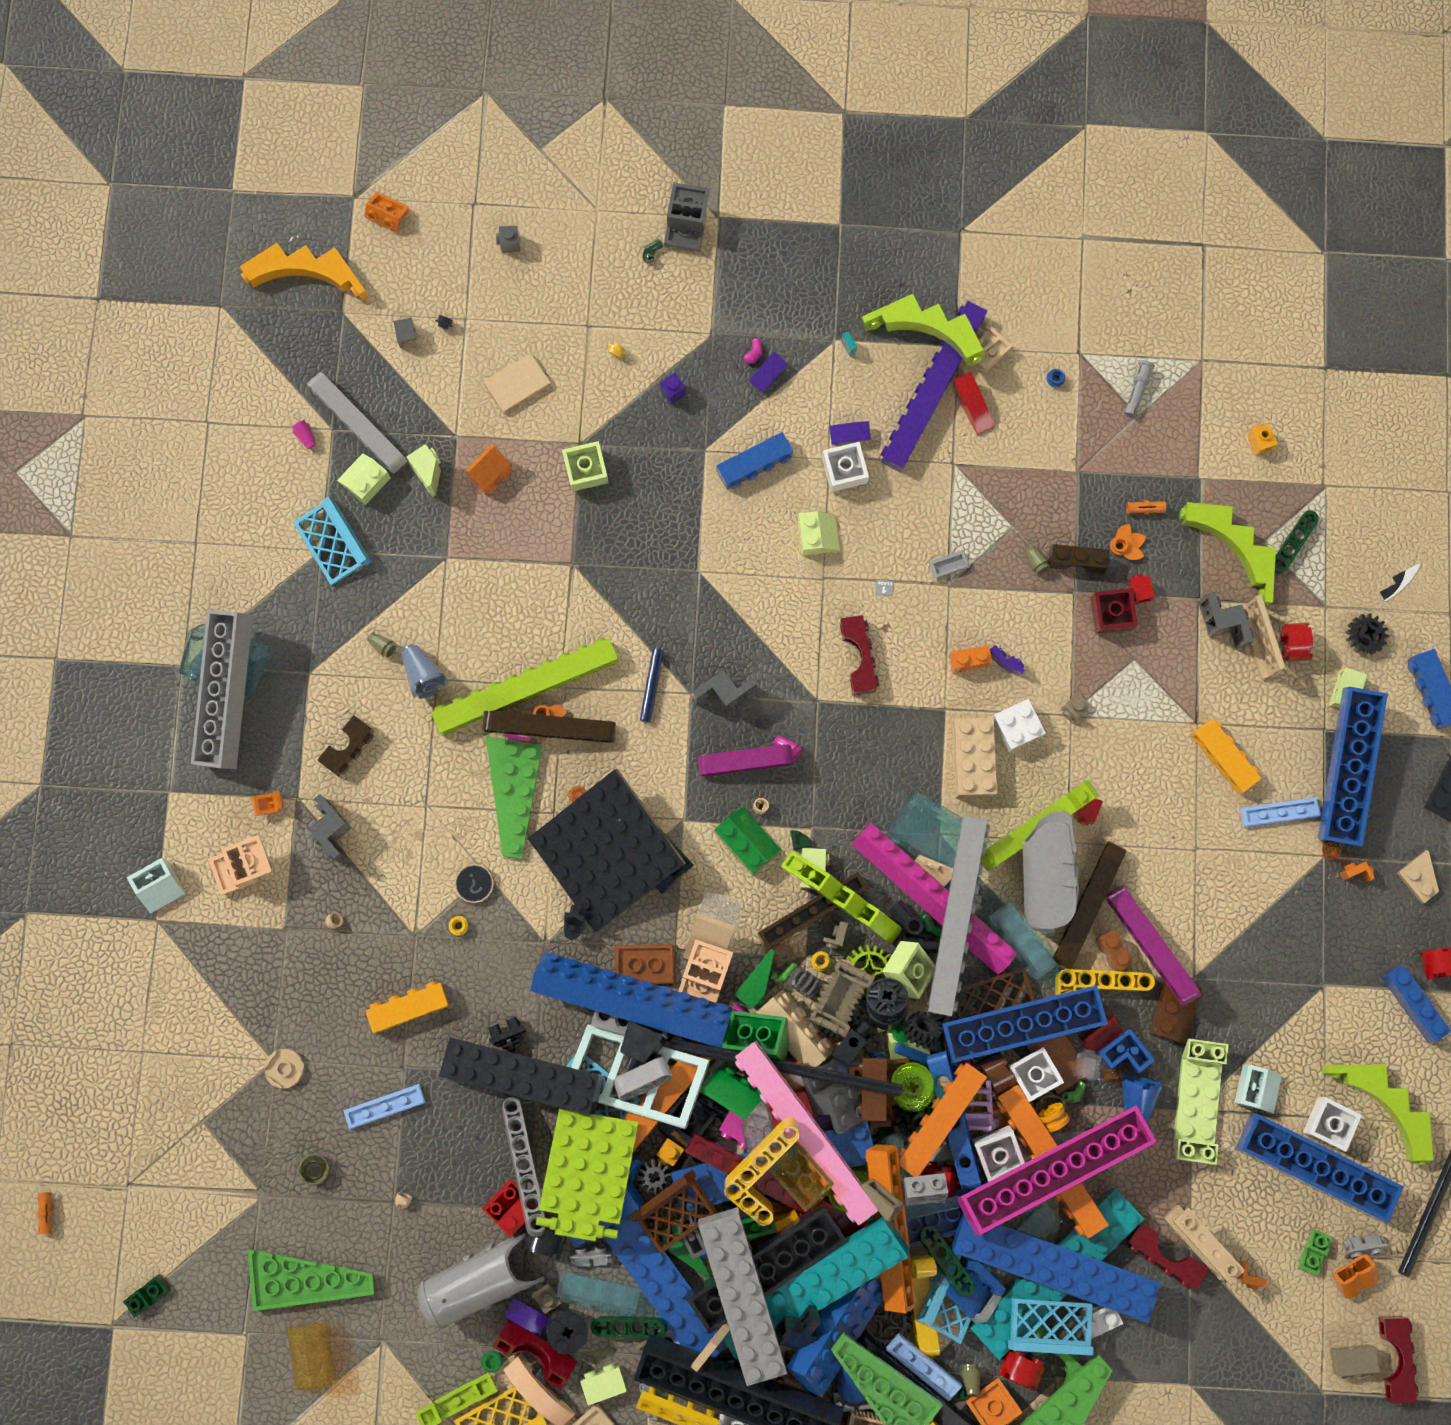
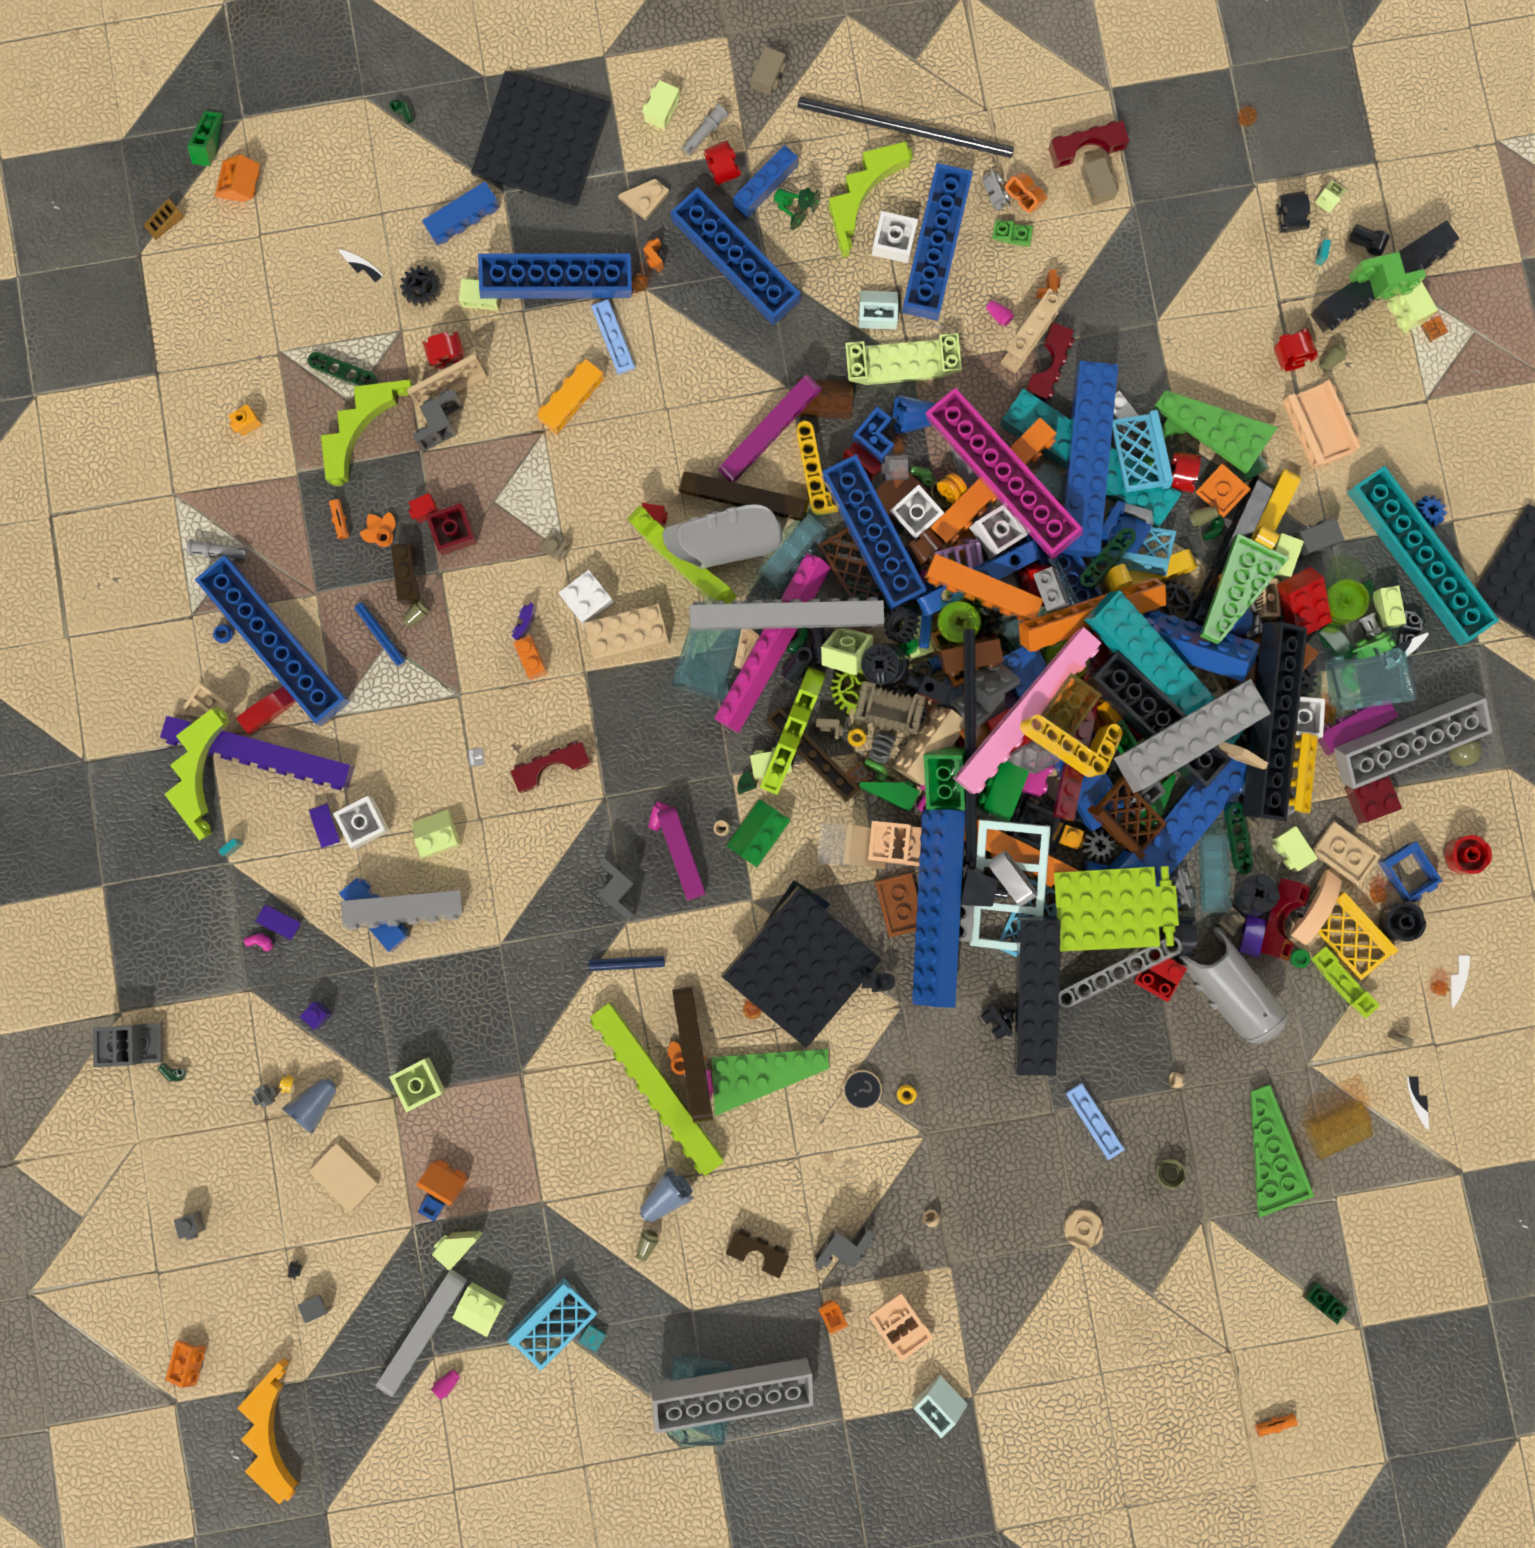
camera: 95 degrees left, 5 degrees up
(309, 575) = (592, 1338): none -> teal tile
(407, 1008) = (997, 1123): light orange brick -> none
(467, 455) = (431, 1207): none -> blue tile
(590, 367) = (311, 1104): none -> sand blue cone
(609, 327) = (264, 1095): none -> dark grey gear
(753, 485) = (401, 909): none -> light grey brick
(800, 1331) = (1208, 677): black brick -> none
(883, 1200) = (1072, 625): dark tan slope -> none
(924, 1367) = (1204, 560): light blue tile -> none
(949, 564) = (439, 698): light grey tile -> none
(1024, 522) = (379, 633): none -> blue axle
(1038, 421) = (272, 640): none -> blue brick
(1116, 954) = (786, 461): dark orange brick -> none
(1229, 1217) = (1000, 313): none -> dark pink cone
(1341, 953) = (735, 256): none -> blue brick
(1386, 1037) = (805, 199): none -> plant

